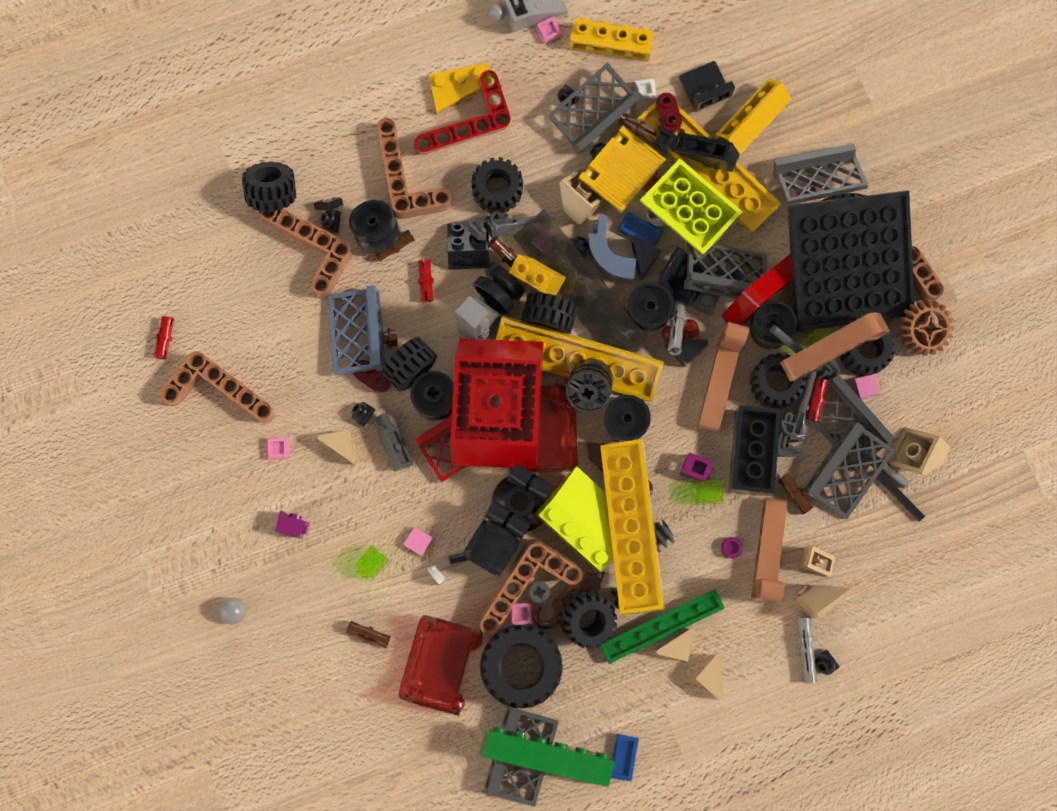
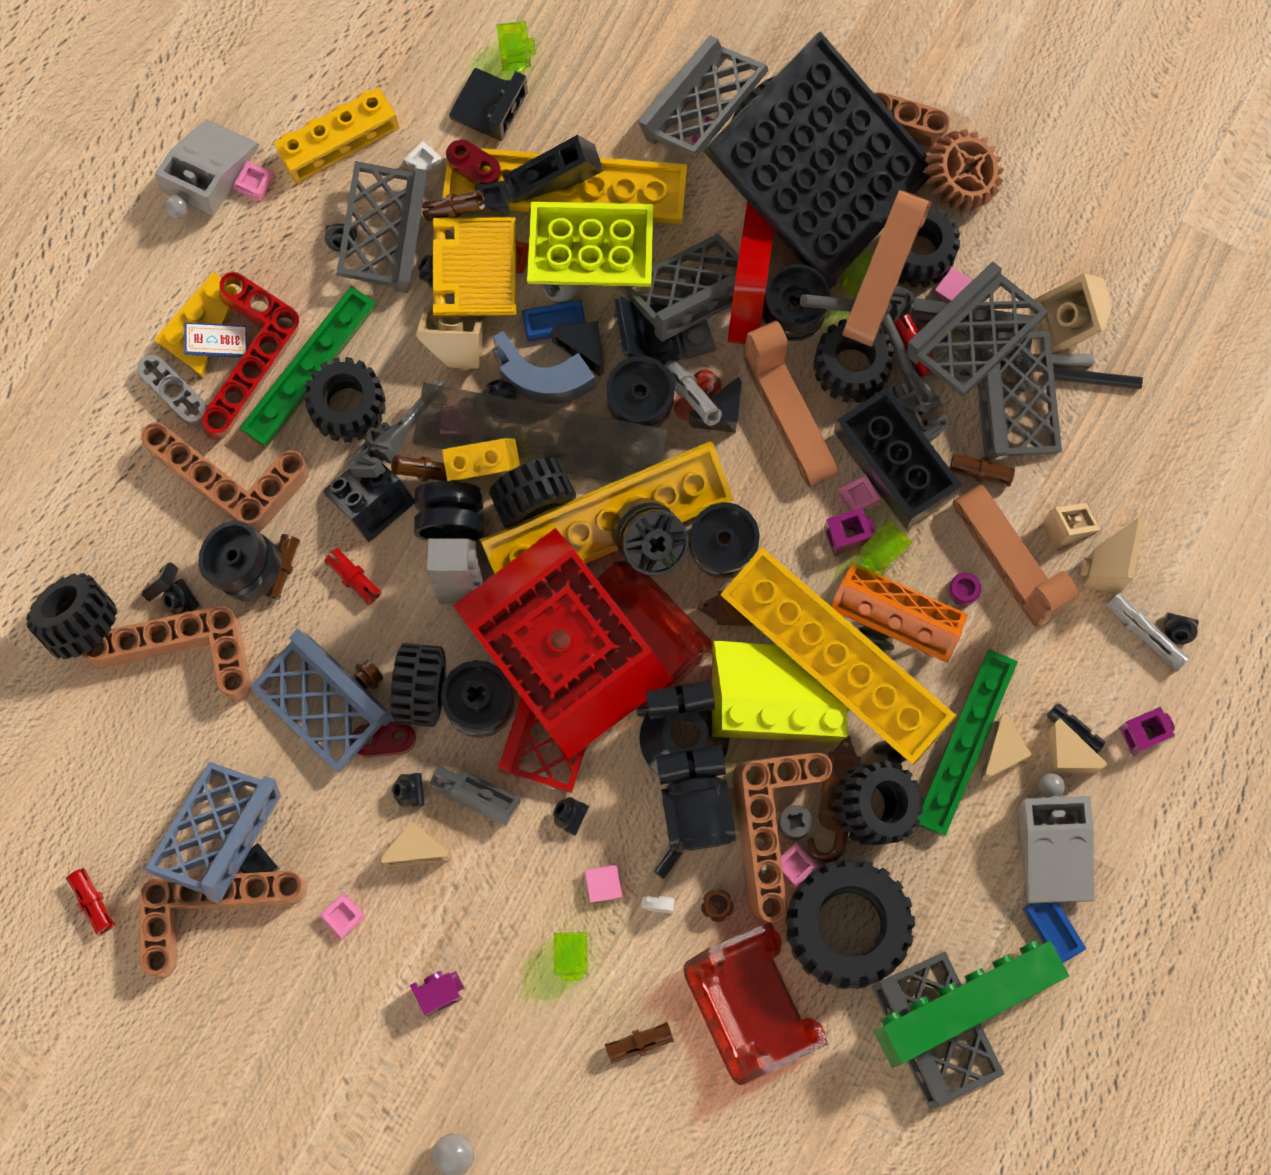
camera: 35 degrees left, 5 degrees down
(258, 368) = (240, 834): none -> sand blue fence
(258, 385) = (258, 861): none -> black tile
(410, 102) = (172, 377): none -> light grey beam
(431, 492) = (570, 815): none -> black plate
(458, 100) = (214, 340): none -> white tile
(471, 599) = (713, 897): none -> reddish brown plate
(507, 148) = (322, 346): none -> green plate
(657, 722) = (1055, 854): none -> light grey slope
(680, 539) = (901, 622): none -> orange fence
(720, 453) = (859, 494): none -> bright pink tile
(726, 670) = (1077, 726): none -> black axle
(745, 66) = (515, 46): none -> clear neon green brick
(755, 115) = (573, 88): yellow brick -> none
(769, 705) = (1135, 736): none -> magenta brick
(850, 401) = (953, 318): none -> dark grey fence

